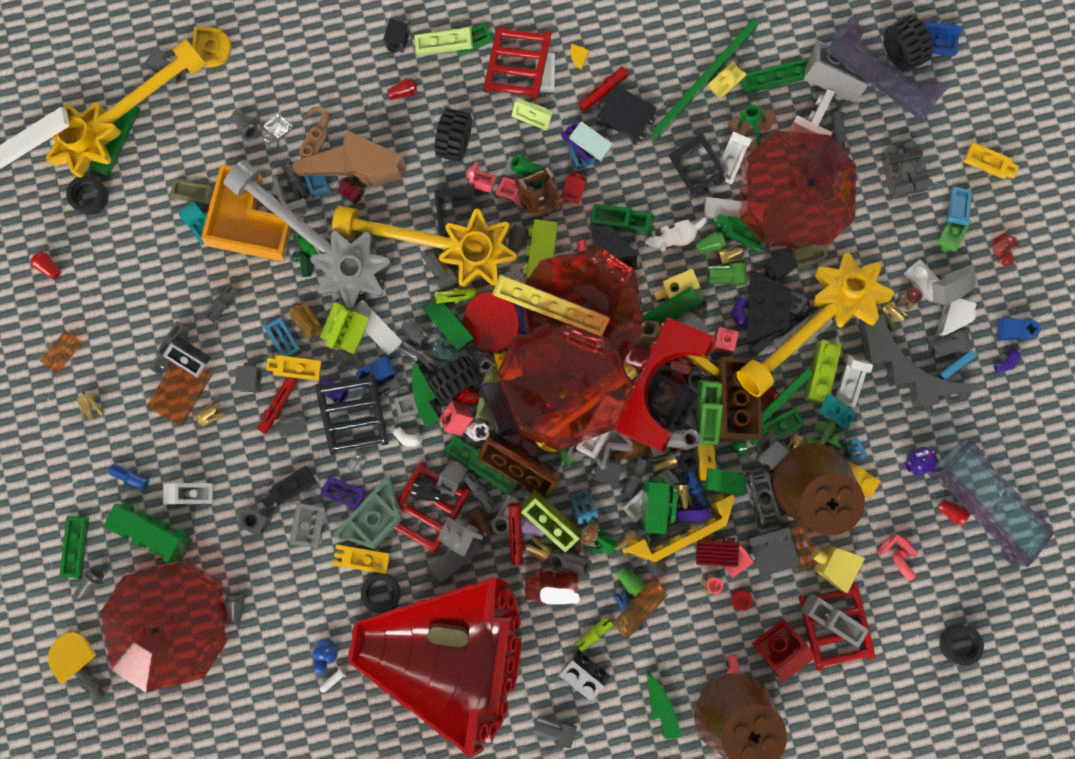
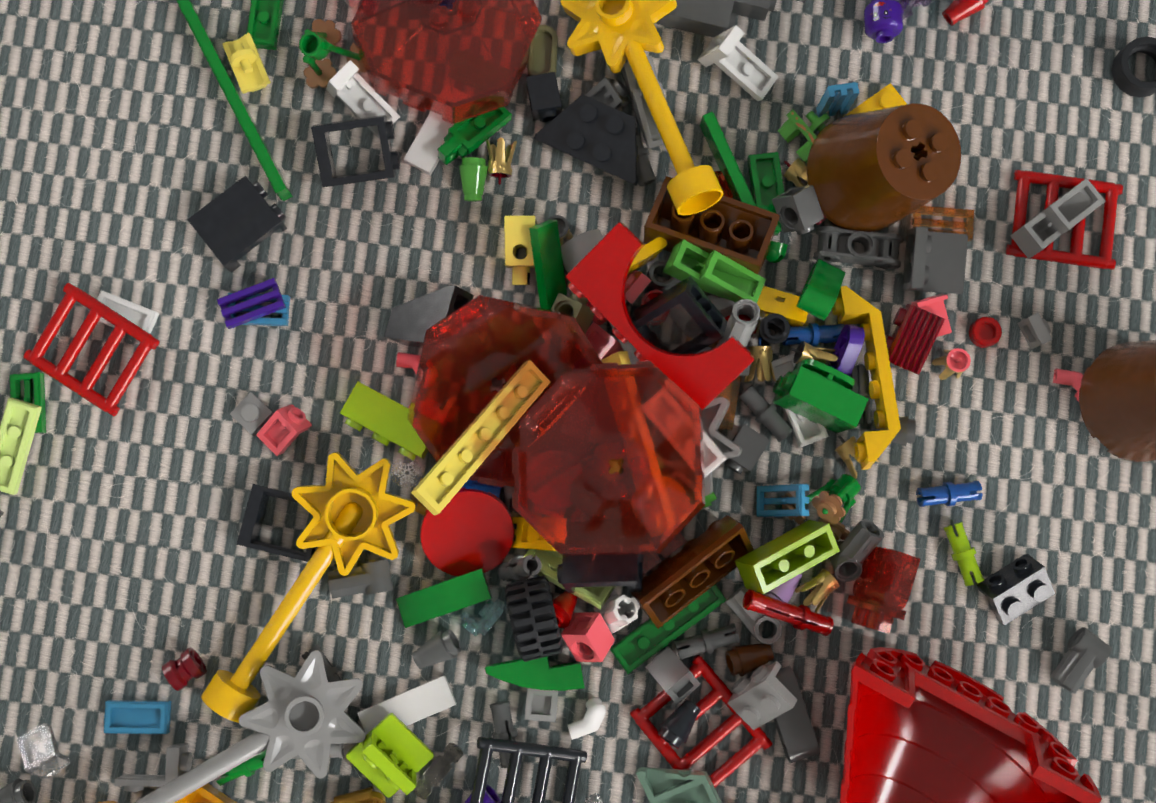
camera: 75 degrees left, 0 degrees up
(294, 181) = (133, 751): dark grey pin -> none
(304, 263) = (266, 781): dark green arm -> none
(357, 157) = (137, 644): medium nougat slope -> none
(381, 368) = (473, 722): blue piece -> none
(403, 89) = (60, 533): red cone -> none
(419, 356) = (475, 658): dark grey pin -> none
(442, 296) = (405, 571): lime pin -> none
(448, 635) = (896, 765): olive tile -> none
(453, 134) = (163, 485): black tyre -> none
(480, 180) = (248, 469): coral bracket -> none
(517, 238) = (357, 449): dark grey cone -> none
(525, 167) = (269, 389): green piece -> none
(532, 113) = (178, 357): yellowish green plate -> none
(542, 200) = (316, 392): reddish brown piece -> none
(574, 187) = (313, 338): red bracket -> none
(578, 55) = (119, 257): yellow tile -> none
(591, 141) = (256, 287): light aqua tile -> none
(603, 89) = (183, 235): red pin -> none
(623, 219) = (389, 287): green slope -> none
(631, 581) = (909, 474): bright green cone -> none
(640, 609) = (953, 476): clear orange tile -> none
(662, 708) = (1099, 498): green slope -> none
(681, 235) = (445, 214): white animal -> none
(725, 340) = (619, 209): coral brick -> none
(733, 274) = (529, 166): bright green piece -> none
(738, 314) = (587, 180): dark purple arm -> none
(755, 631) = (1035, 330): none -> light grey plate
(783, 650) = (1074, 302): red slope -> none
(824, 369) = (708, 93): lime brick -> none
(837, 412) = (779, 101): teal plate -> none
(837, 566) = (986, 185): light yellow torso -> none
(902, 542) = (976, 95): coral bracket -> none
(903, 567) = (1016, 100): coral arm -> none

